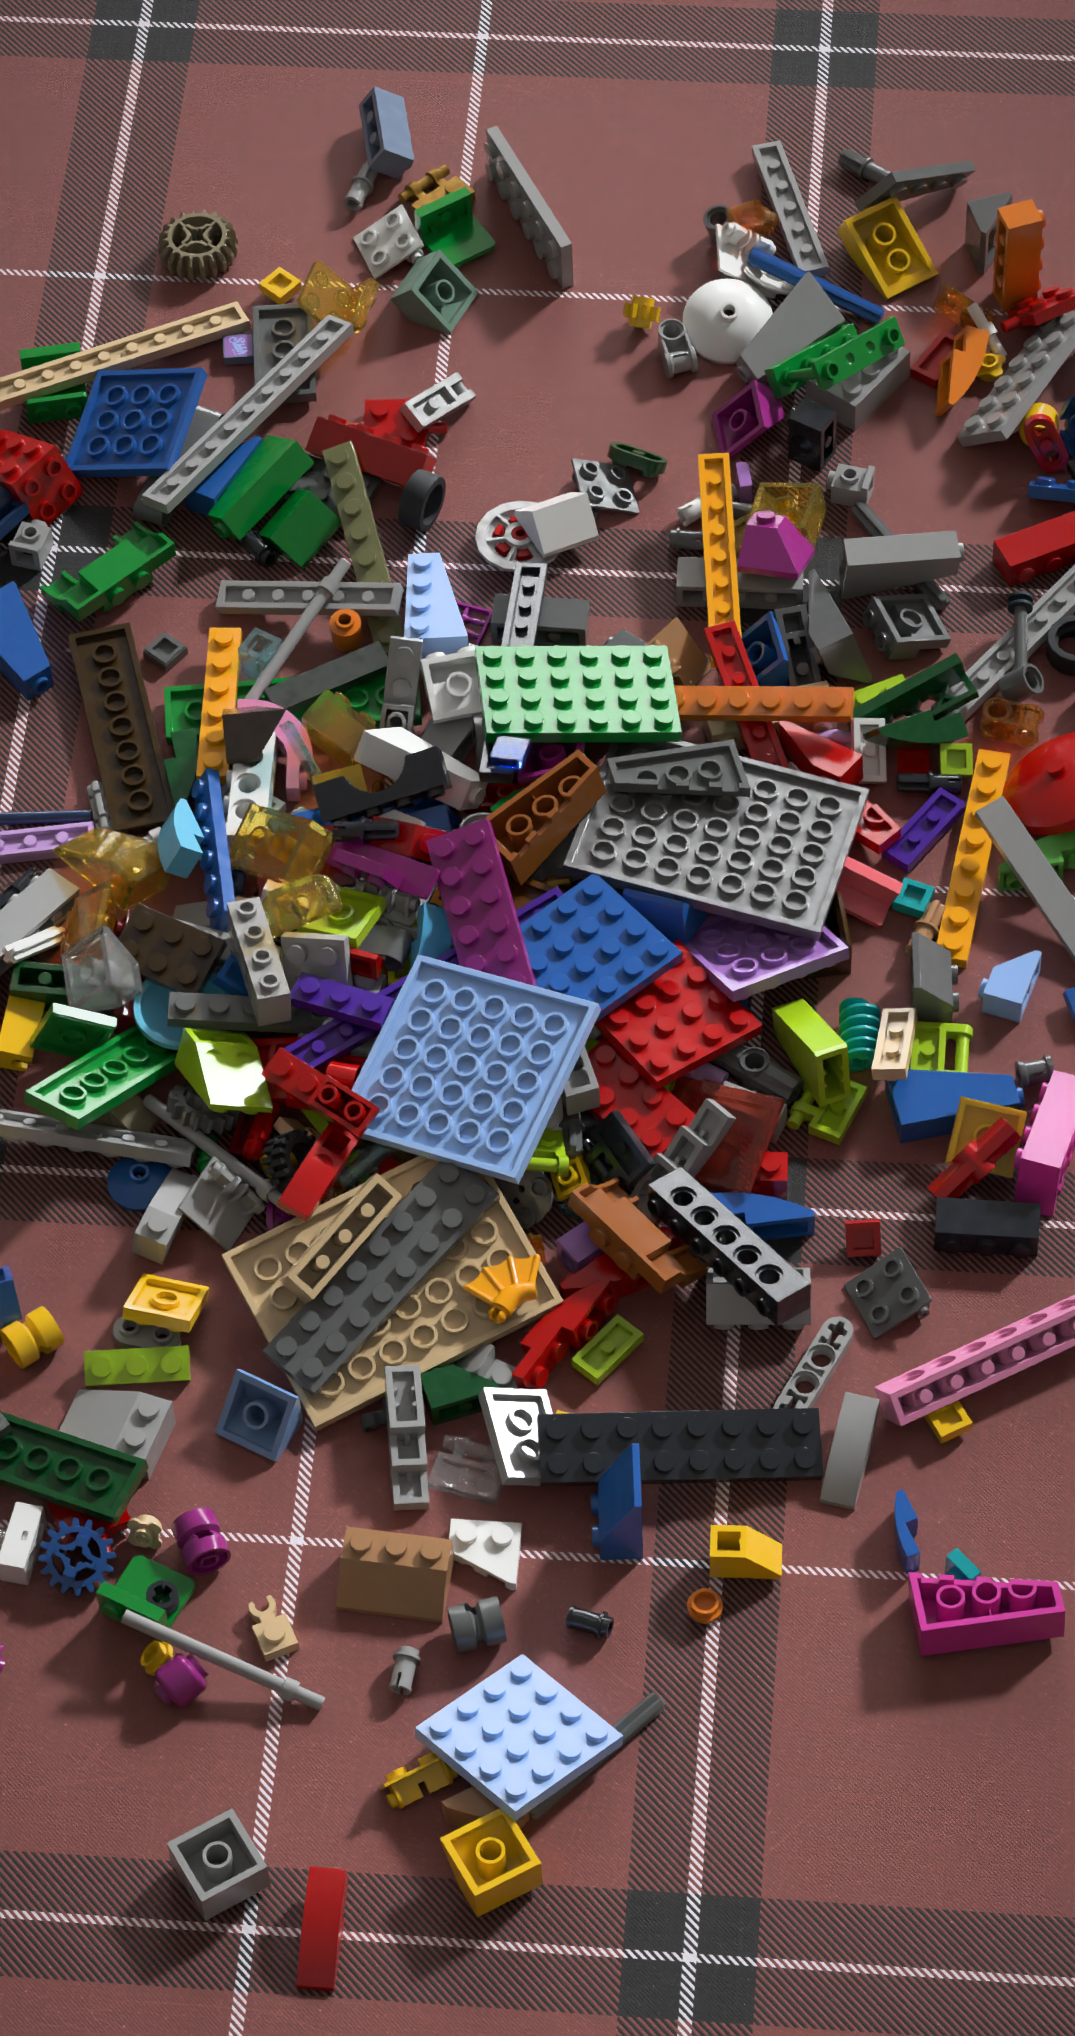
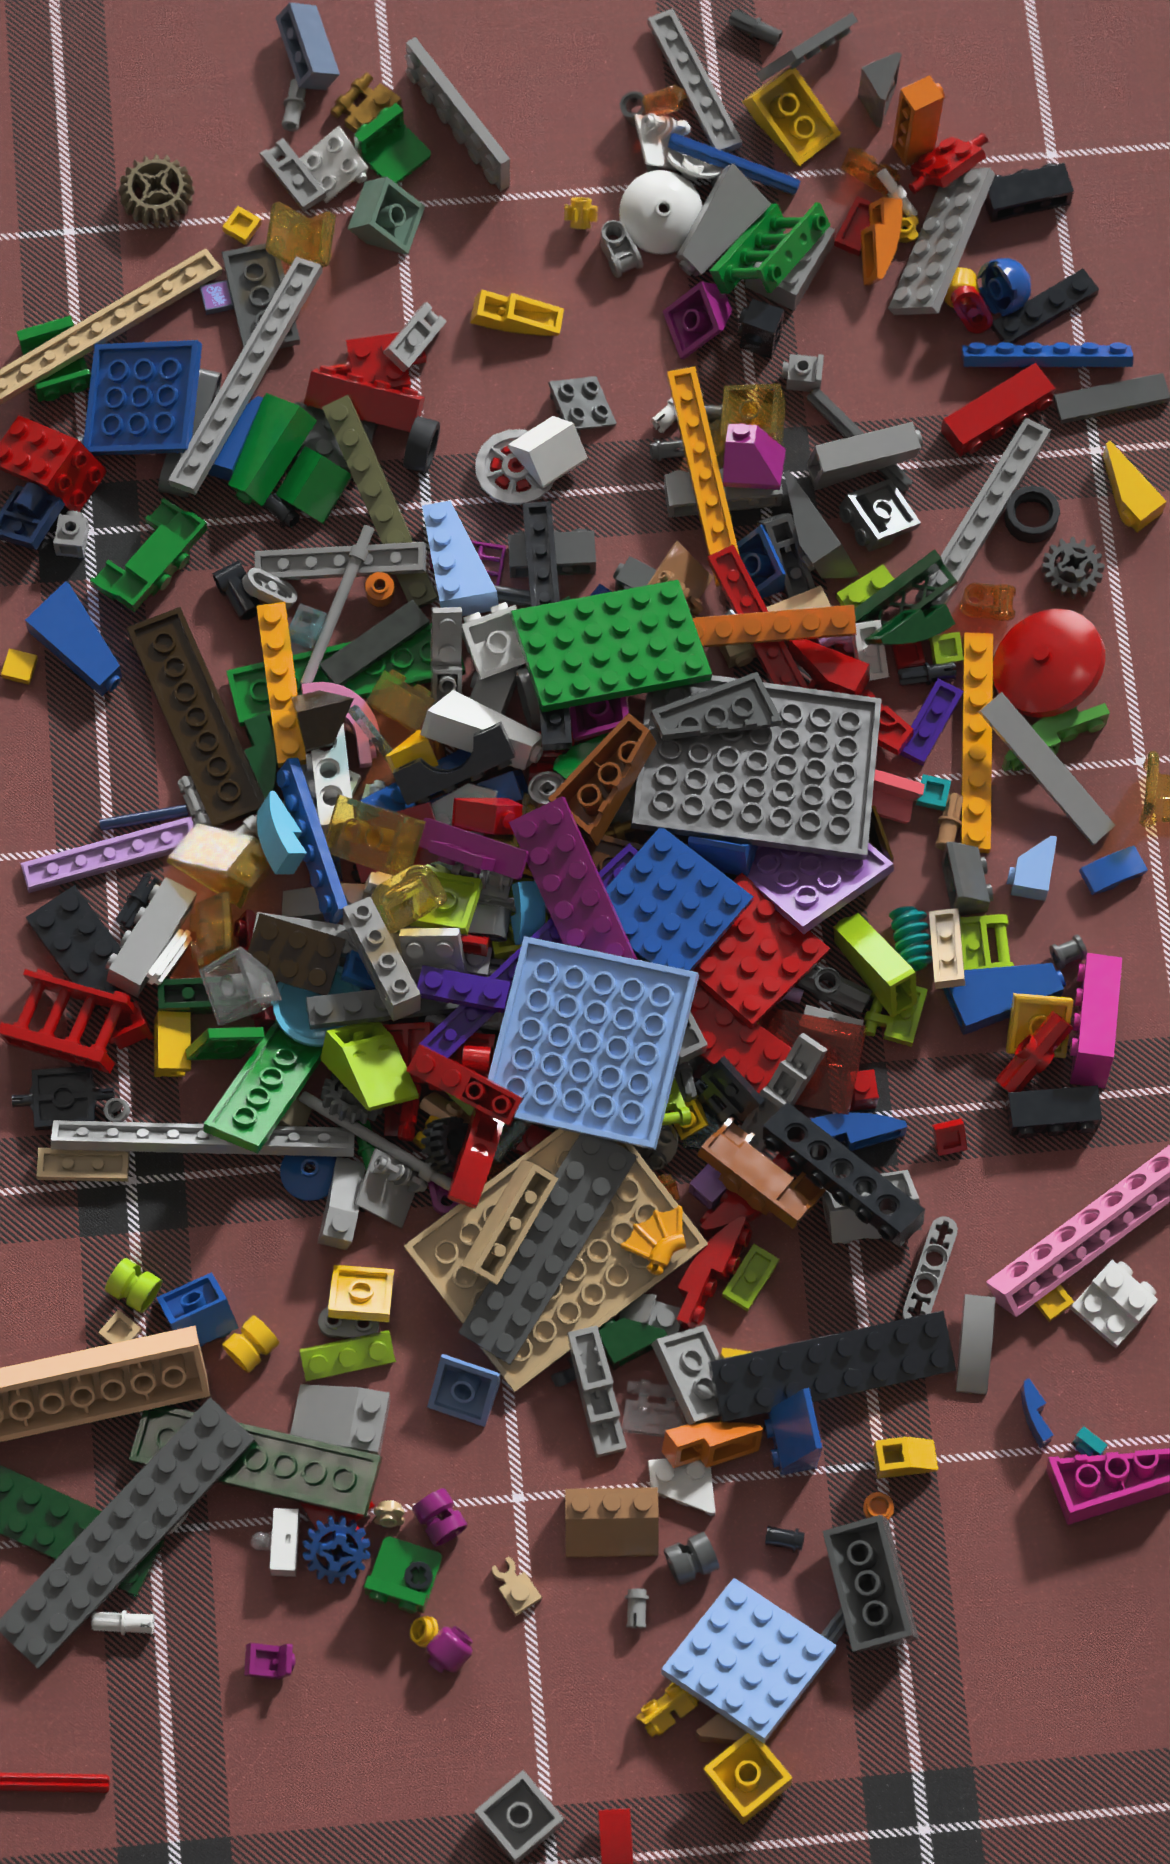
camera: 15 degrees left, 15 degrees up
(165, 652) = (217, 629): dark grey tile -> none
(193, 611) = (230, 585): none -> black piece
(225, 613) = (269, 587): none -> light grey plate
(288, 1689) = (542, 1642): light grey bar -> none
(345, 248) = (293, 175): none -> light grey plate
(365, 831) = (452, 816): black axle -> none
(510, 752) = (566, 721): clear blue tile -> none
(525, 1507) = (710, 1442): none -> orange slope
(552, 397) = (516, 314): none -> yellow slope
(628, 455) = (605, 369): dark green plate -> none
(677, 1680) = (870, 1584): none -> dark grey slope
(743, 483) = (707, 384): medium lavender tile -> none
(889, 1293) = (981, 1187): dark grey hinge -> none
(1021, 1433) = (1115, 1303): none -> white plate
(1025, 678) = (992, 560): dark grey piece -> none

